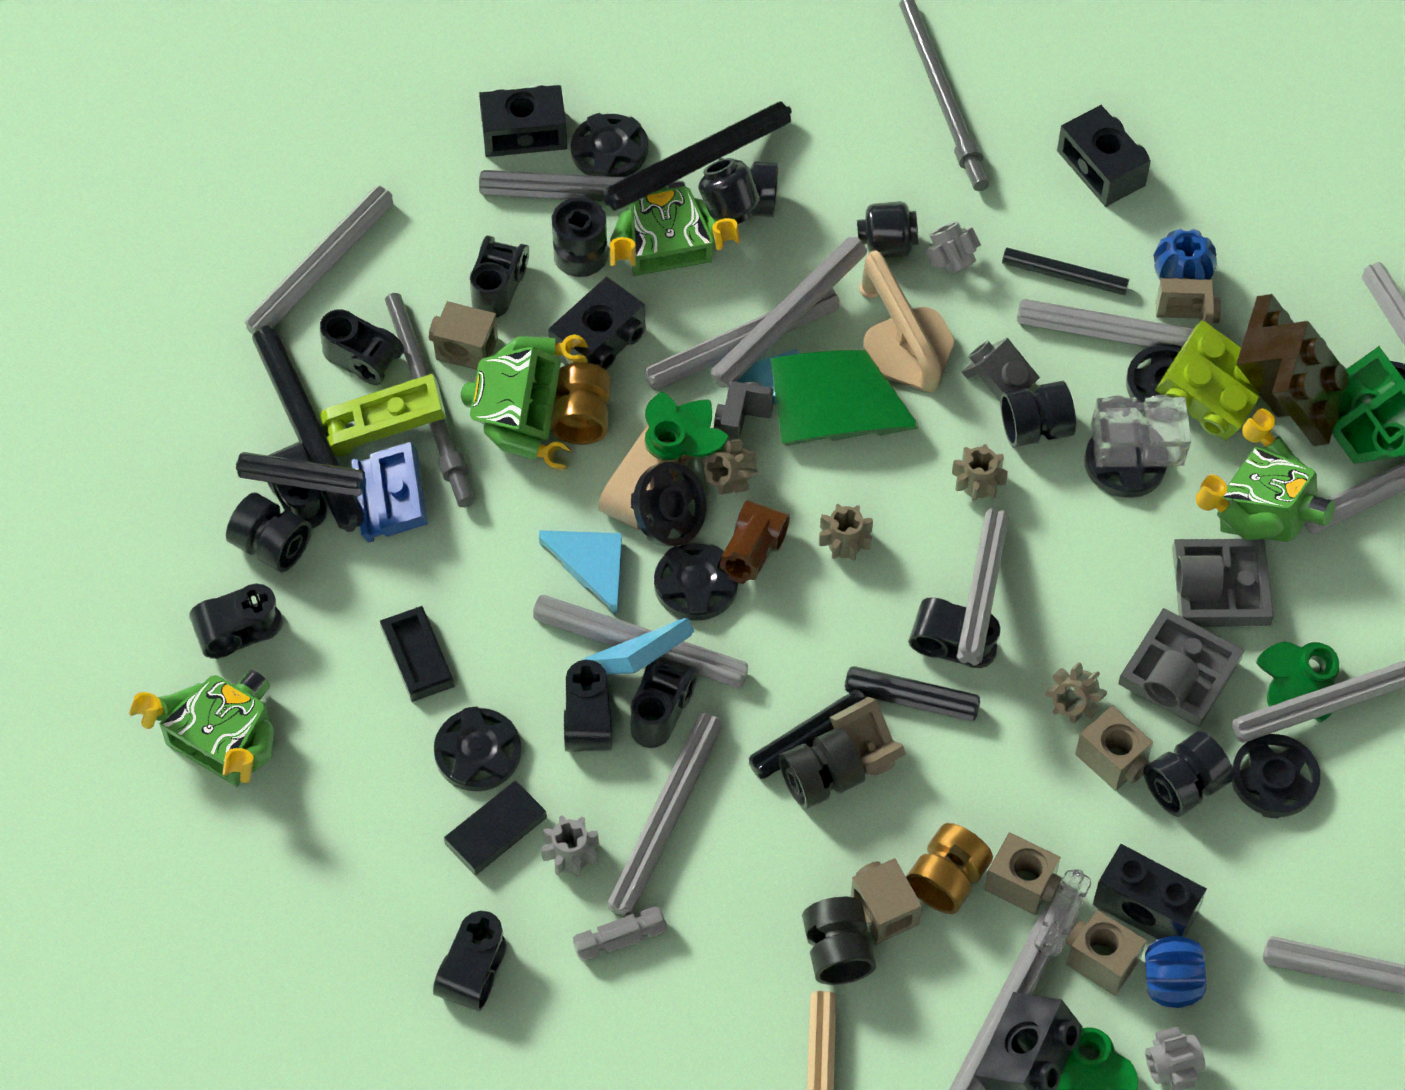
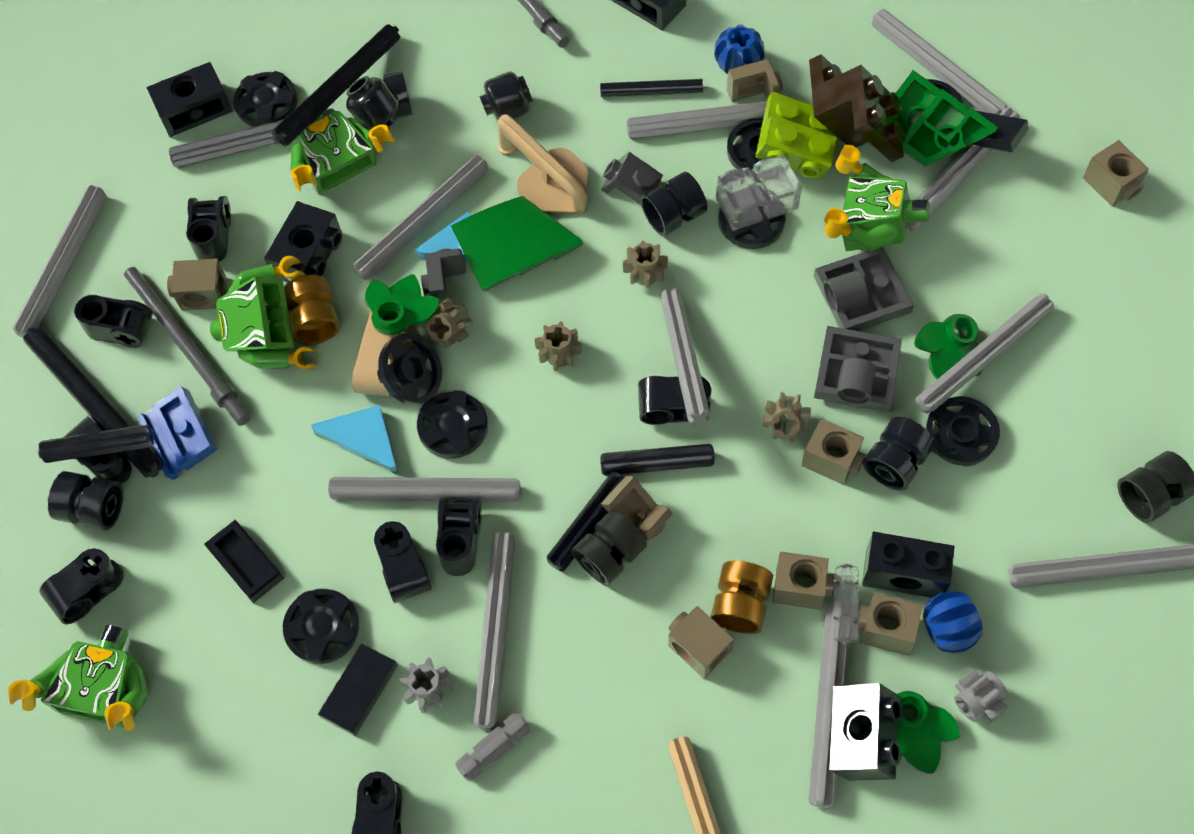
camera: 15 degrees left, 5 degrees up
(382, 414) = (151, 370): lime plate -> none
(579, 237) = (265, 176): black wheel -> none
(644, 649) = (429, 499): medium azure tile -> none
(755, 536) = (487, 369): reddish brown piece -> none
(789, 312) = (451, 185): light grey axle -> none
(839, 948) = (673, 686): pearl dark grey wheel -> none
(953, 247) = (560, 95): light grey gear -> none

